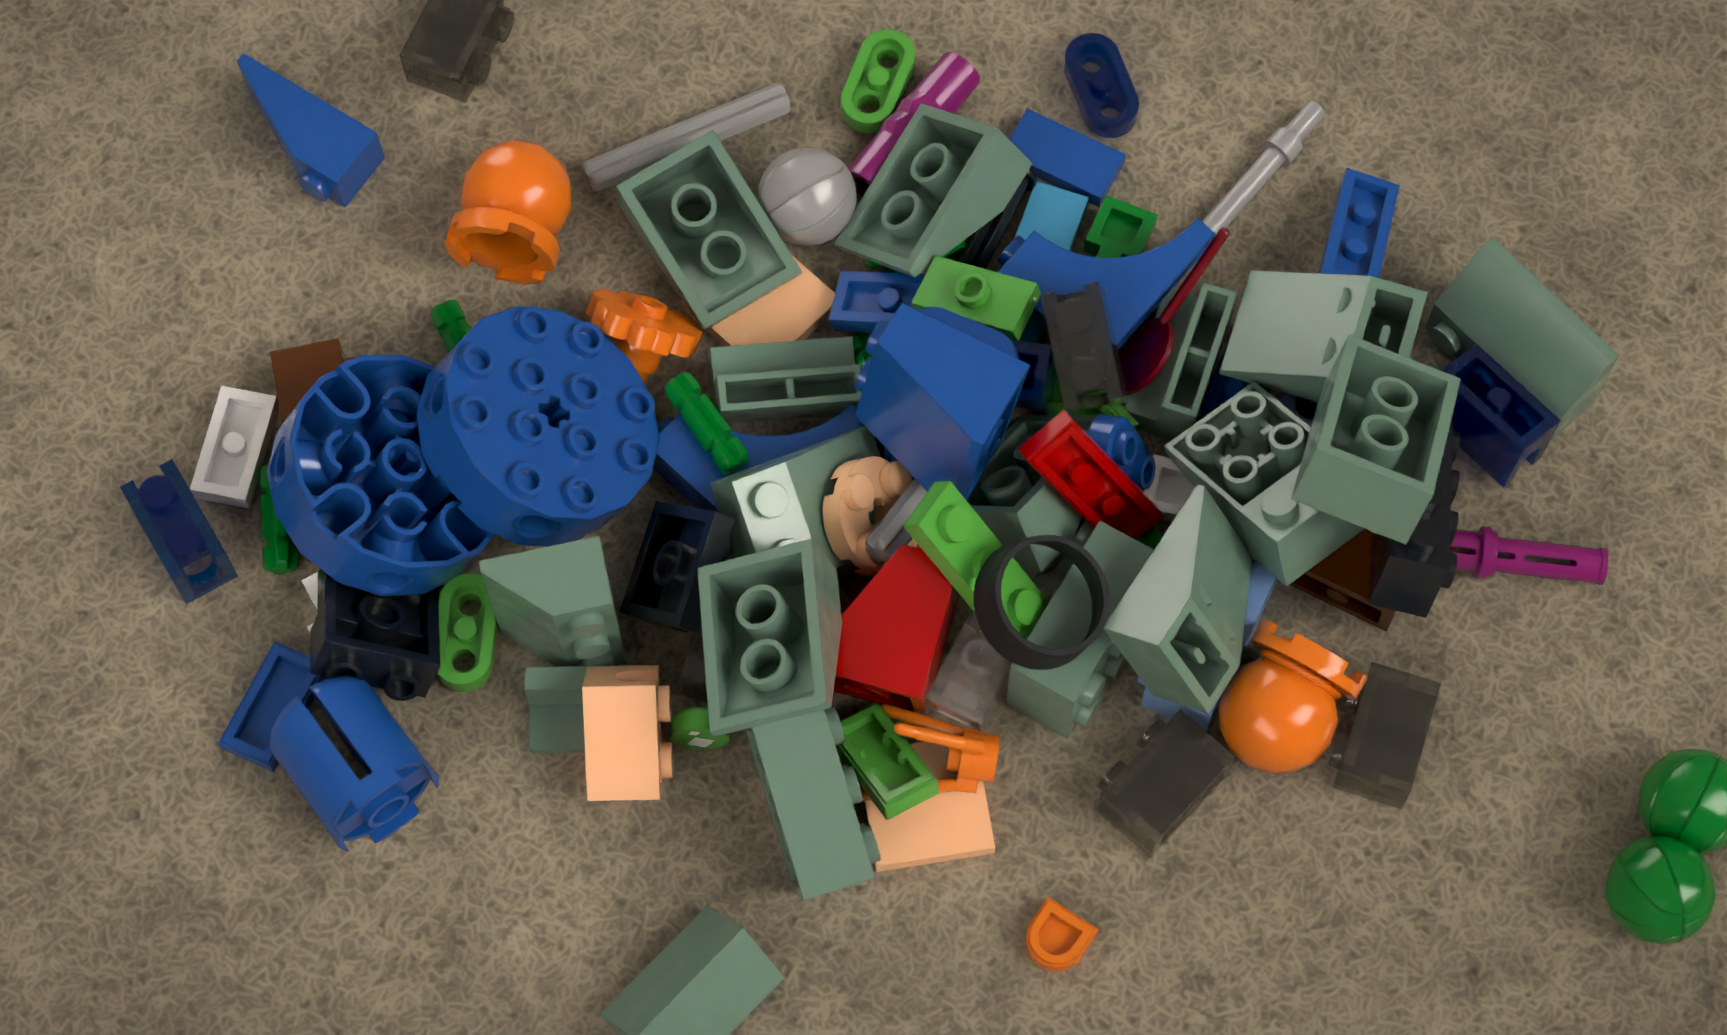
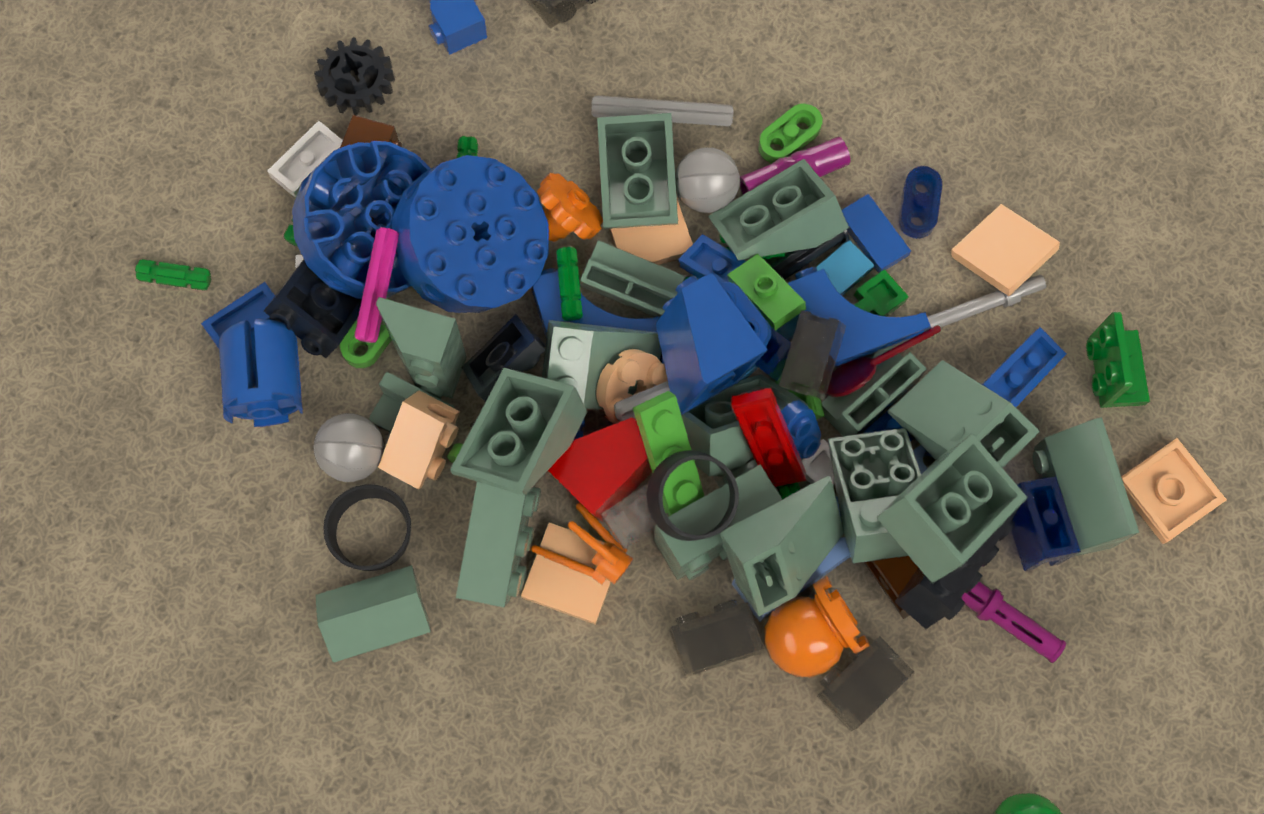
camera: 25 degrees right, 5 degrees up
(137, 699) = (173, 274): none -> green axle
(179, 531) = (247, 191): clear blue brick -> none
(233, 322) = (339, 86): none -> black gear
(456, 553) = (376, 284): none -> dark pink axle
(511, 212) = (536, 101): orange tile -> none
(531, 795) = (348, 447): none -> light grey piece
(607, 835) = (347, 499): none -> black tyre
(885, 762) = (555, 540): bright green plate -> none
(1058, 937) = (602, 696): orange tile -> none
(1246, 91) = (1005, 249): none -> light nougat tile
(1470, 165) = (1117, 364): none -> green bracket
(1628, 290) = (1171, 491): none -> light nougat tile

